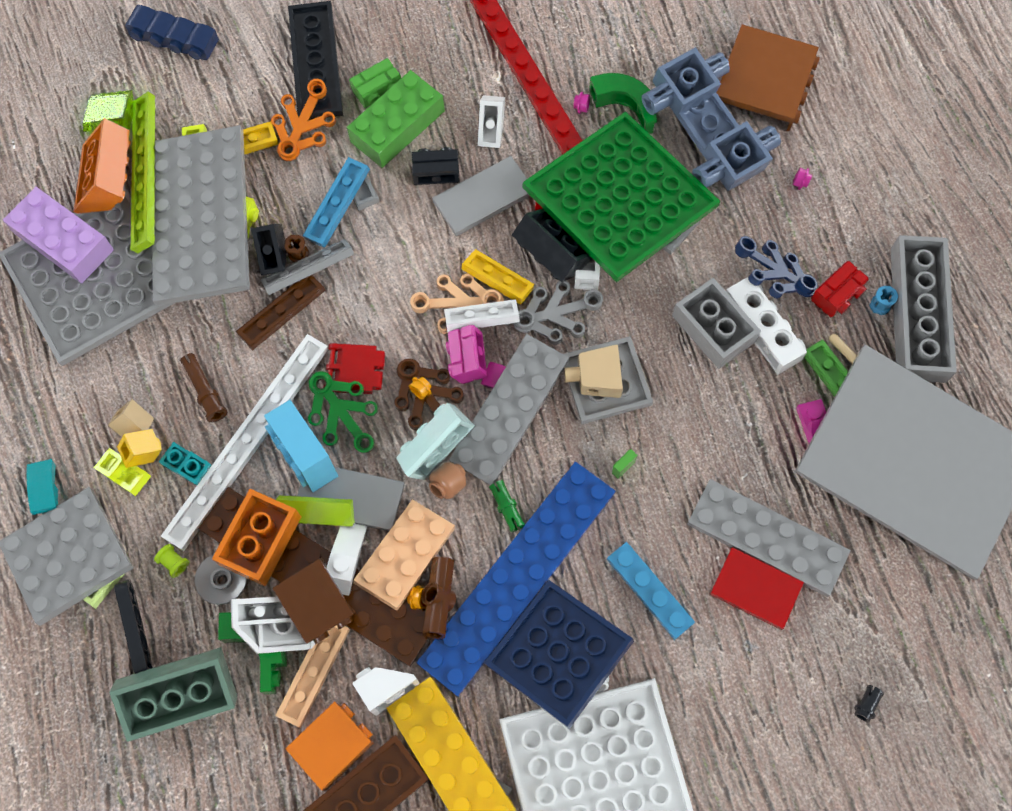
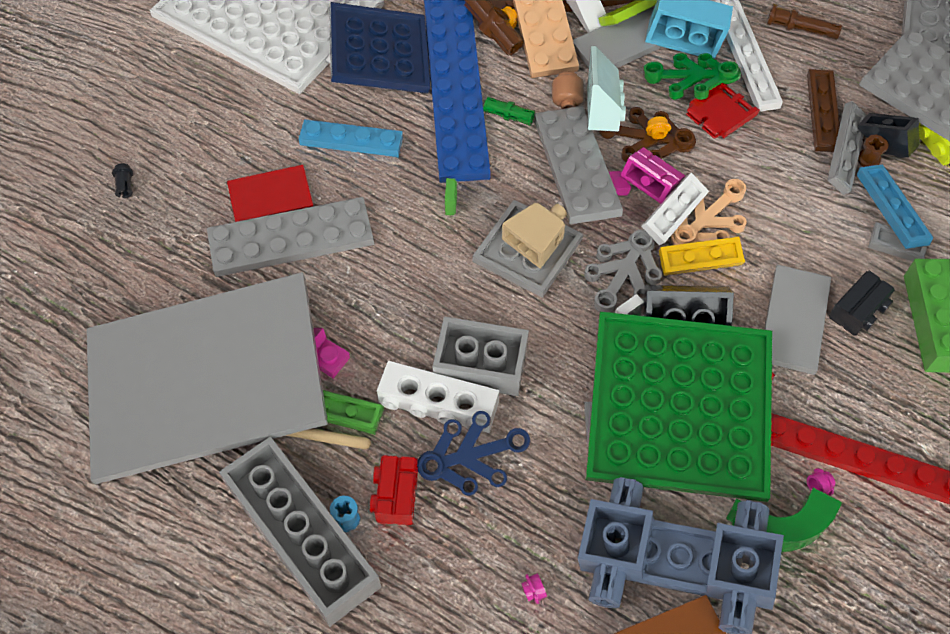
camera: 135 degrees right, 10 degrees down
(491, 121) = (875, 387): white slope -> none

